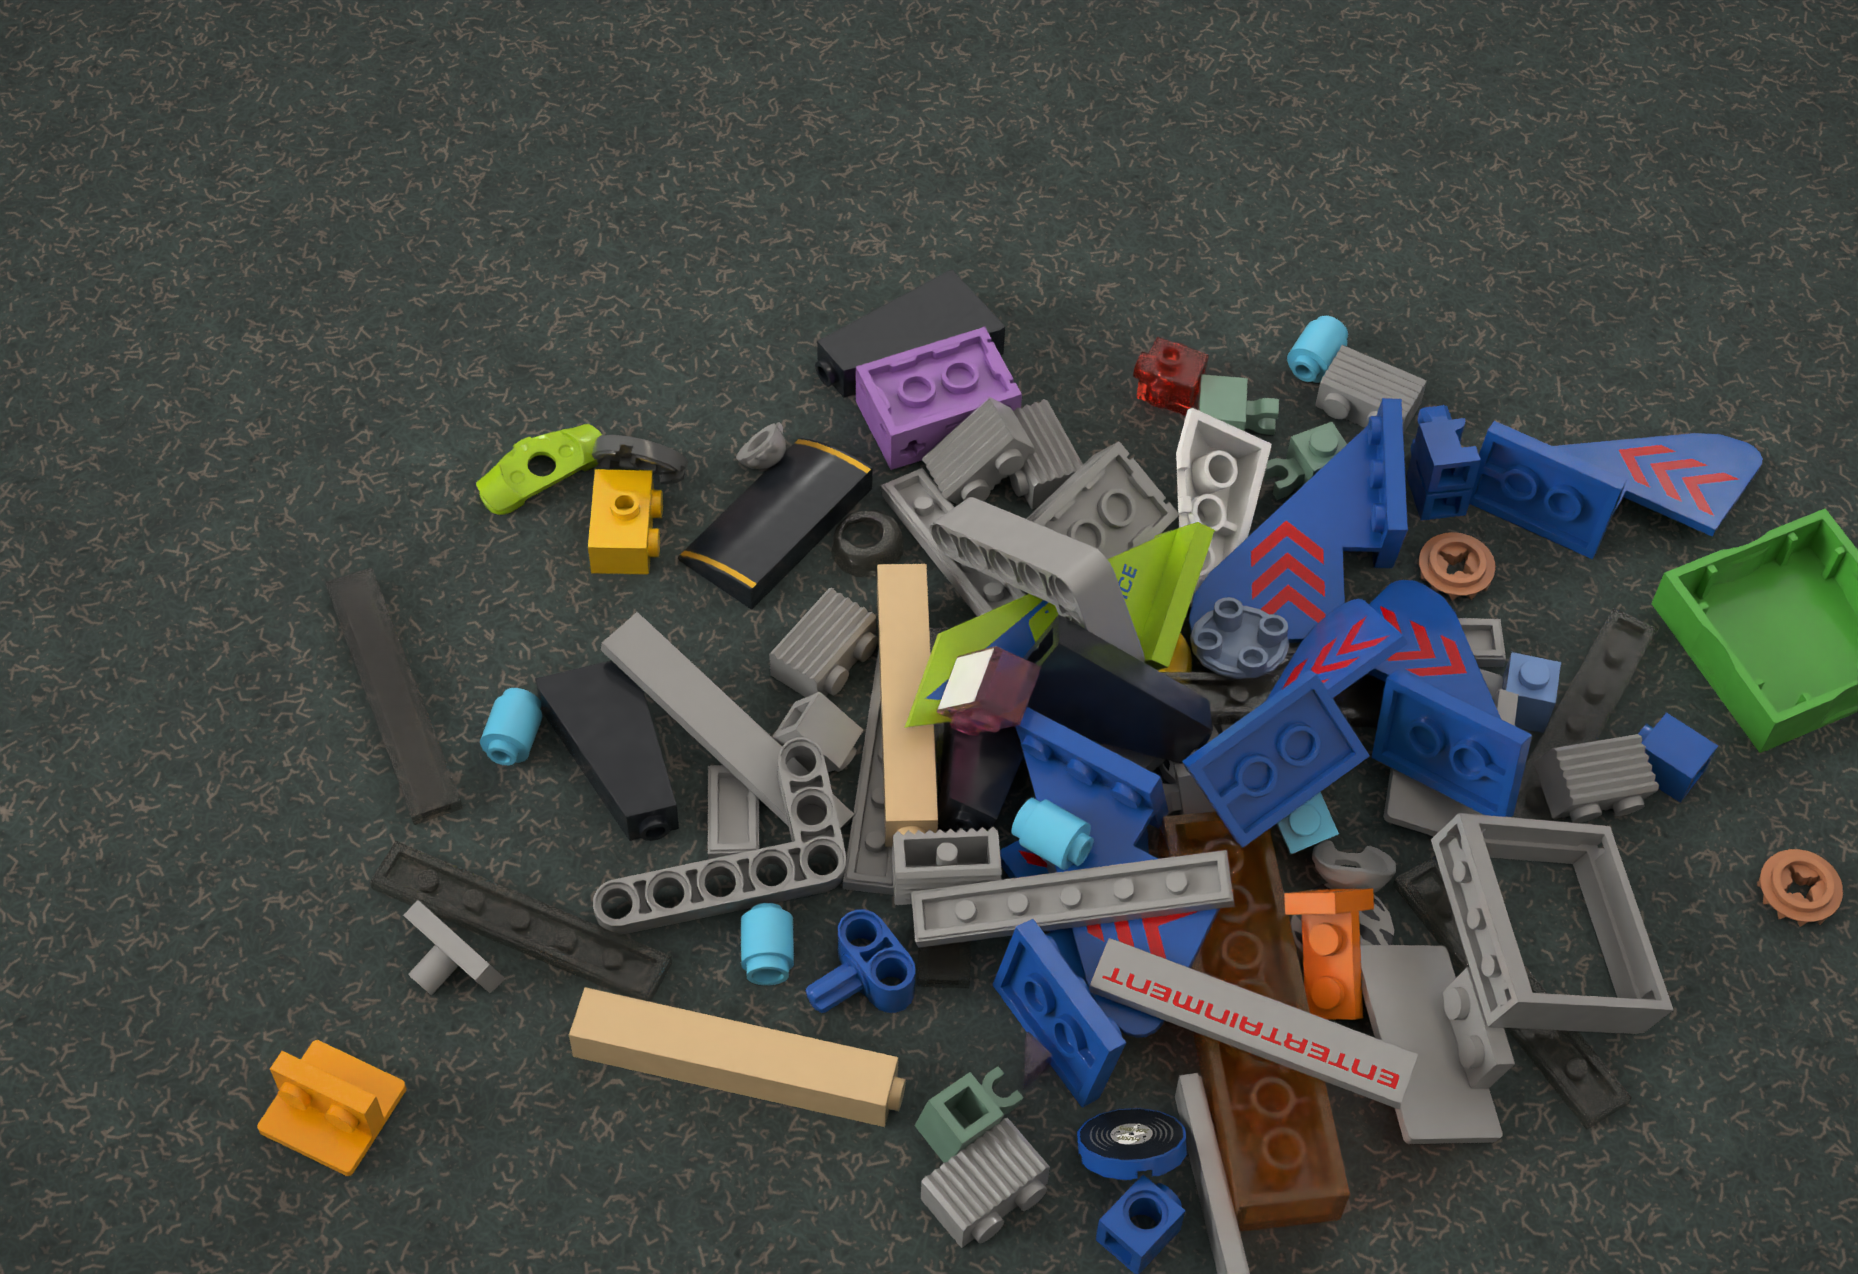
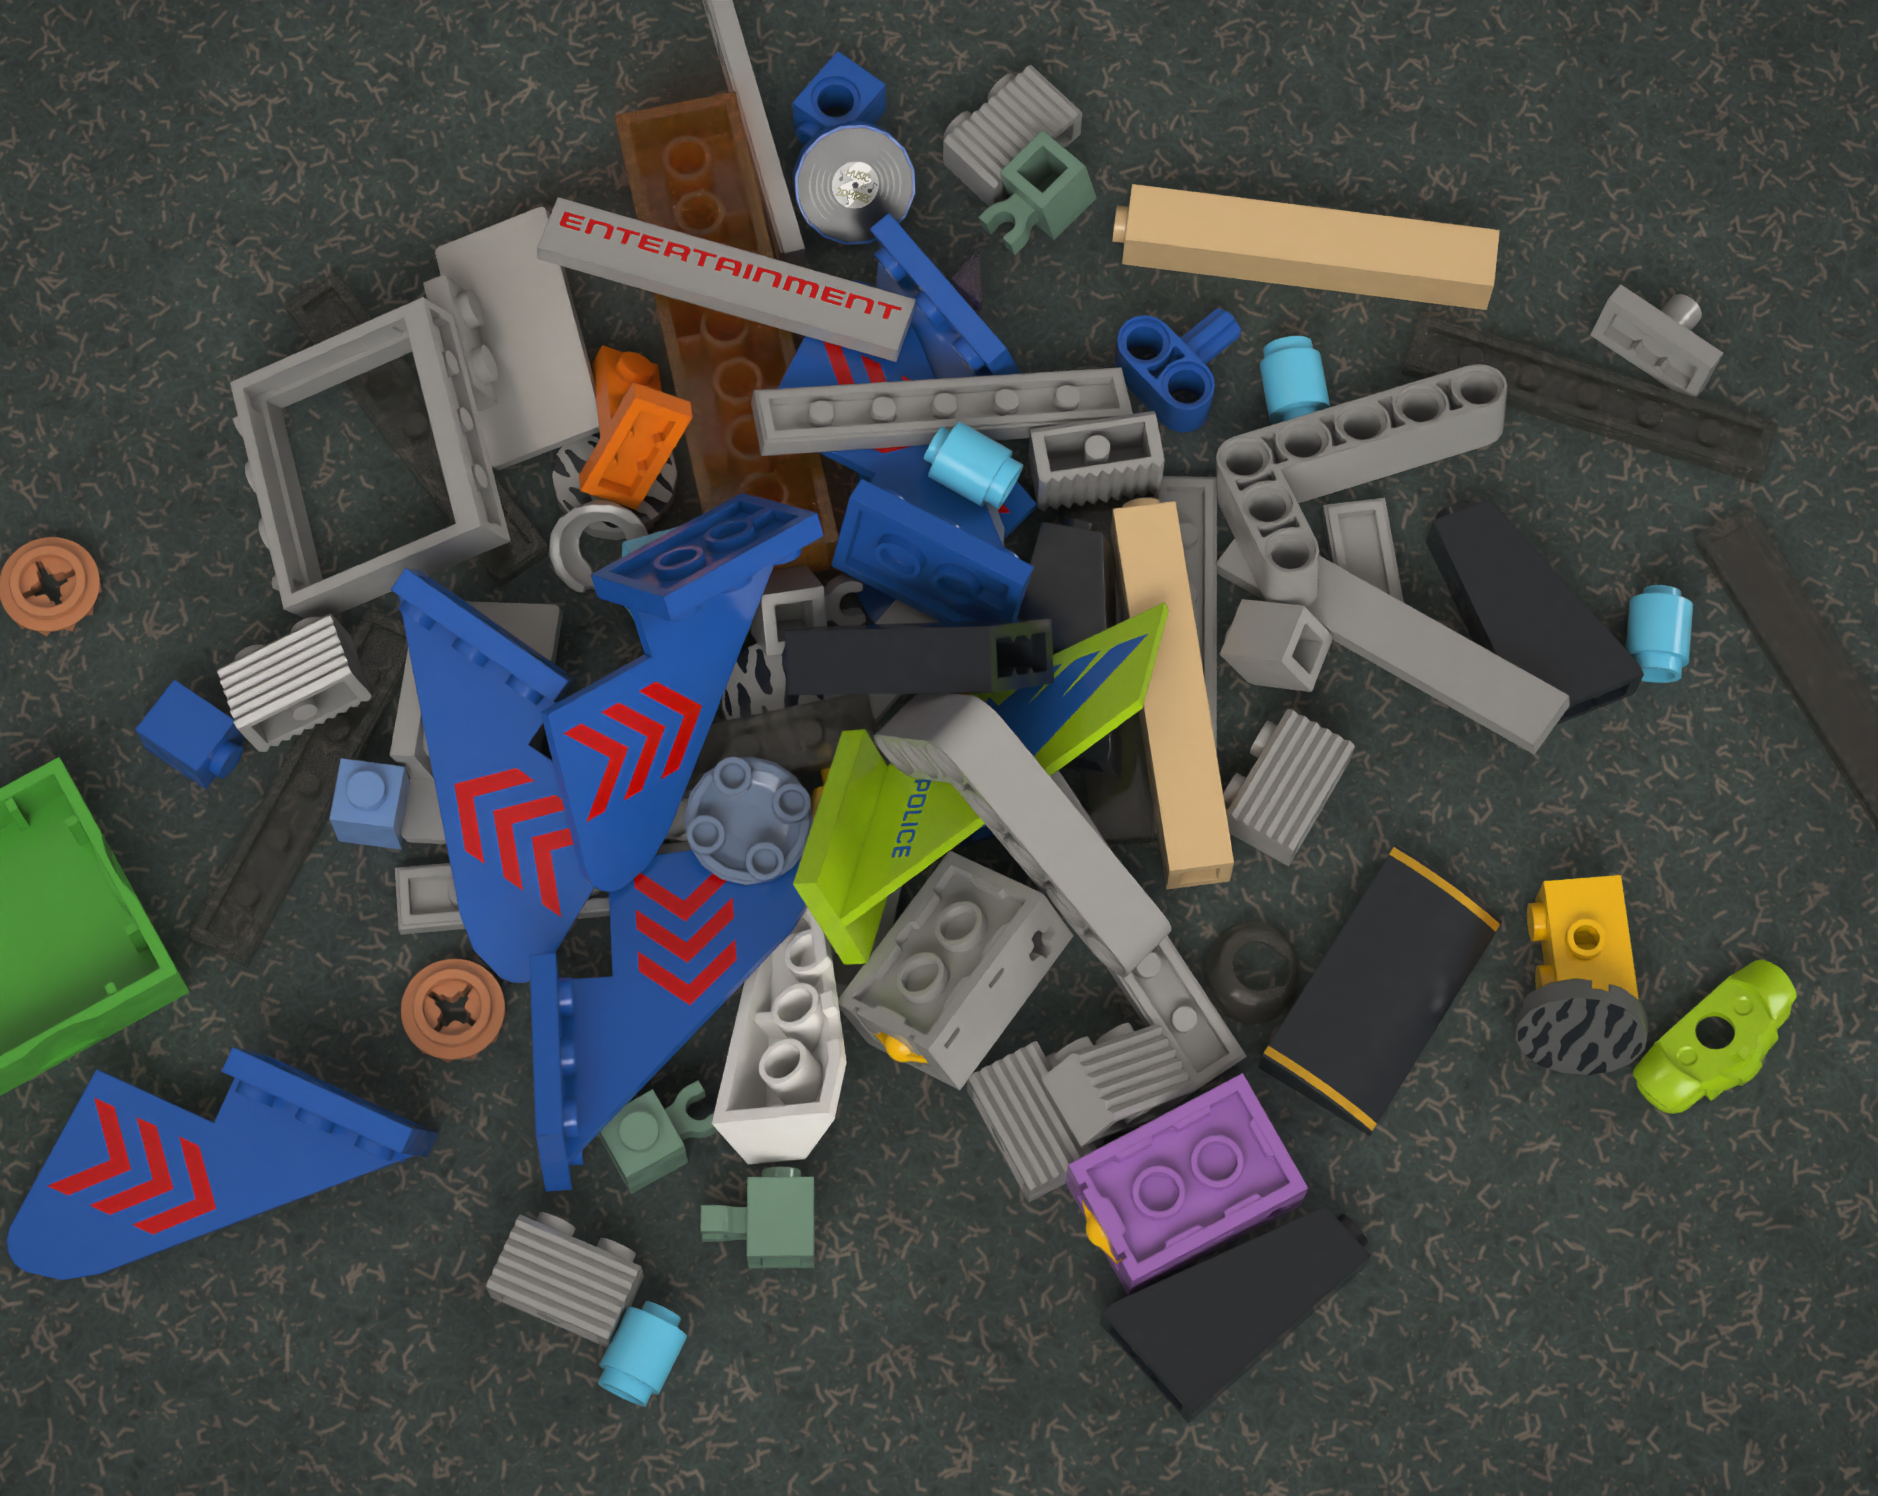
camera: 175 degrees right, 15 degrees up
(329, 1105) = (1744, 162): light orange bracket -> none
(763, 448) = (1419, 1095): light grey animal -> none
(988, 691) = (1070, 615): clear pink brick -> none
(1170, 375) = (850, 1245): clear red brick -> none
(1439, 468) = (481, 1146): blue hips -> none

